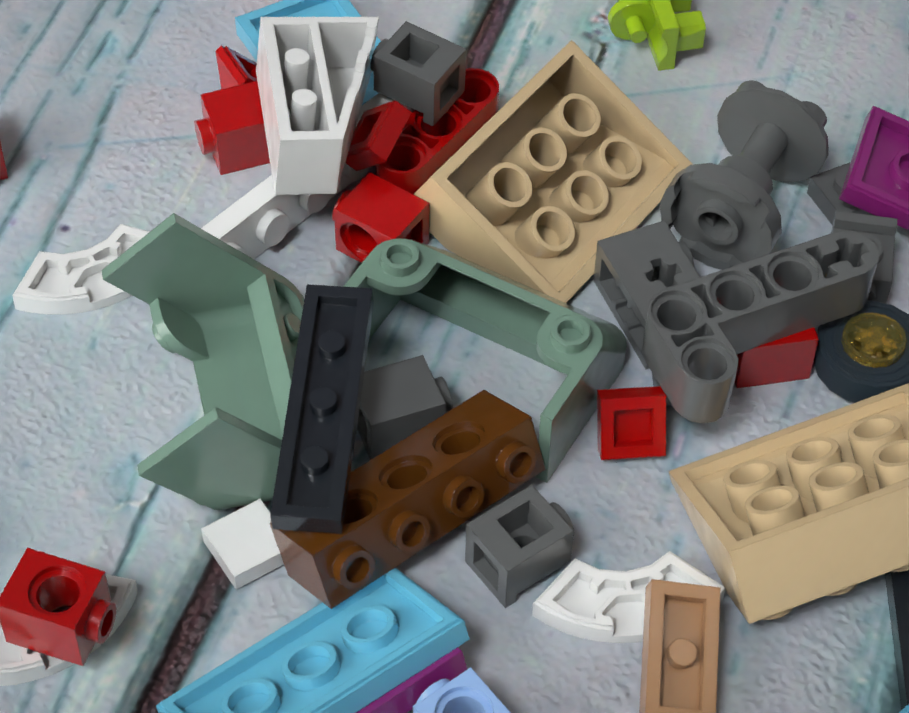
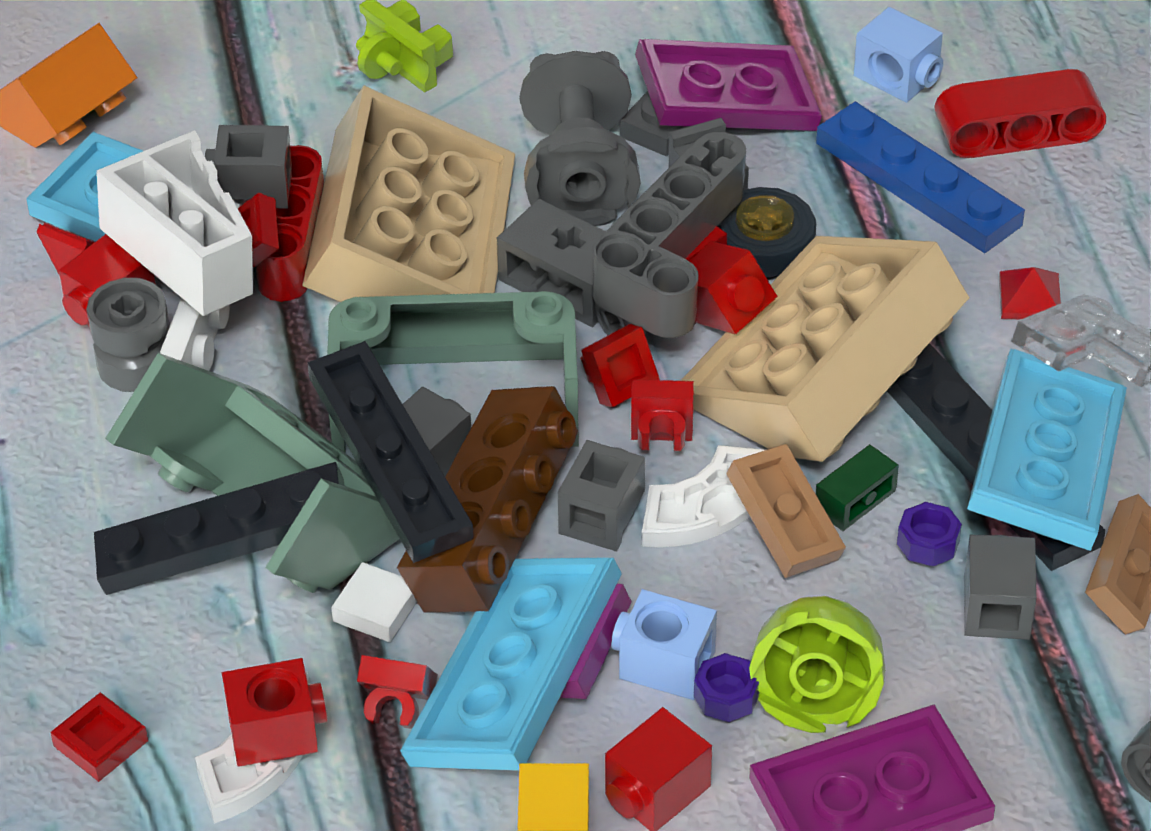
camera: 30 degrees left, 5 degrees down
(74, 280) = (65, 466): white tile -> none
(148, 398) = (204, 531): none -> black plate
(196, 632) = (398, 681): none -> red tile
(217, 170) = (127, 329): none -> dark grey wheel
(375, 214) = (292, 309): red brick -> none
(637, 490) = (662, 412): none -> red tile
(775, 666) = (857, 486): none -> dark green piece
(780, 392) = (729, 287): none -> red brick

